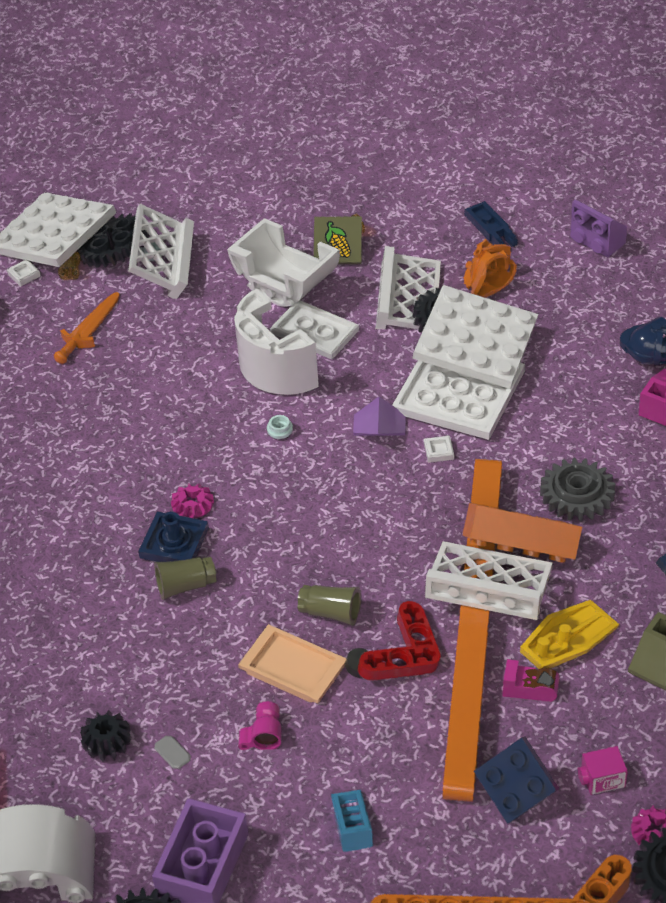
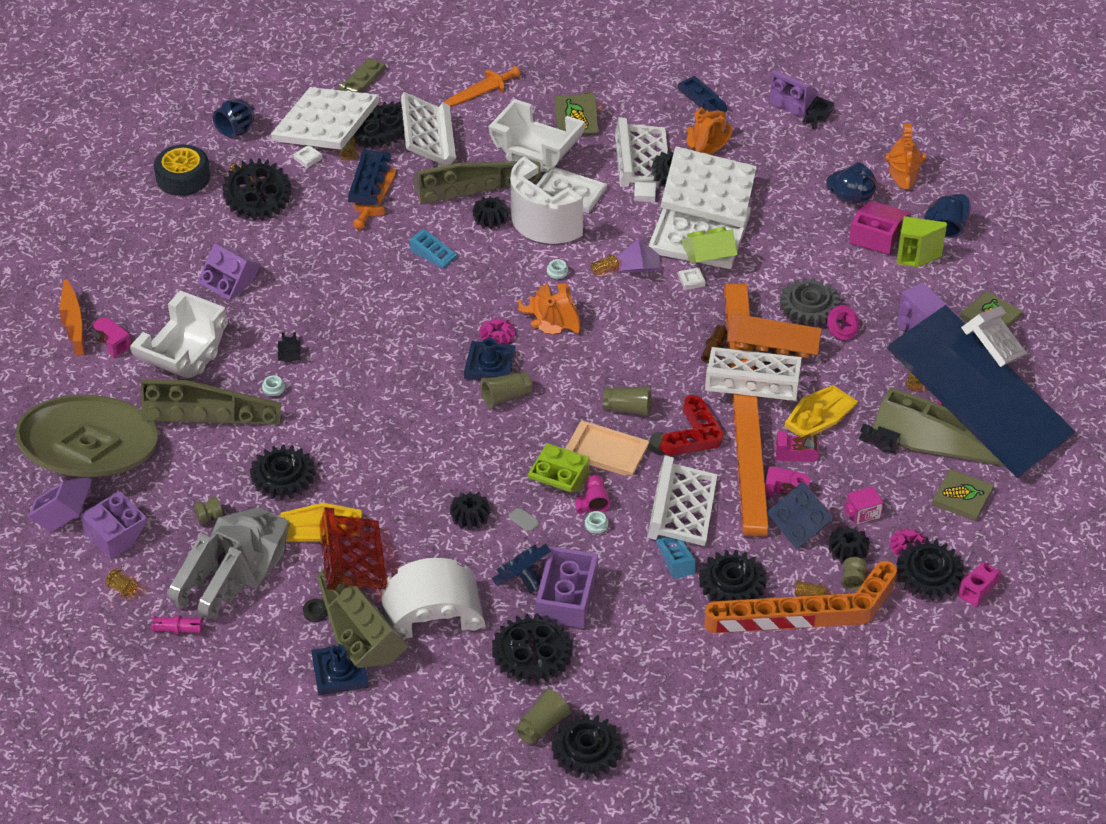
camera: 10 degrees left, 0 degrees up
(81, 300) = (367, 176): none -> dark blue hinge
(107, 183) = (363, 76): none -> olive plate
(129, 380) = (422, 240): none -> dark azure slope
(150, 822) = (521, 567): none -> dark blue plate
(193, 310) = (463, 179): none -> olive wedge
(214, 351) = (490, 212): none -> black gear
(226, 690) = (560, 468): none -> lime slope
(252, 196) = (491, 82): none -> orange sword
(256, 758) = (596, 517): none -> light aqua plate
(262, 479) = (553, 311): none -> orange helmet
(336, 425) = (605, 264): none -> clear yellow pin
(346, 745) = (662, 503): none -> white fence
(395, 857) = (732, 577): none -> black gear
(402, 337) = (645, 191): none -> white tile
(451, 532) = (715, 340): none -> reddish brown axle
(463, 411) = (710, 246): none -> lime slope
(506, 728) = (783, 481): none -> dark pink leg
(516, 885) = (809, 589): none -> clear yellow pin
(575, 825) = (848, 543): none -> black gear
(576, 866) = (854, 573): none -> olive wheel
(623, 515) = (849, 318): none -> dark pink gear
(625, 249) = (818, 110): none -> black plate
(642, 679) = (882, 438): none -> black plate

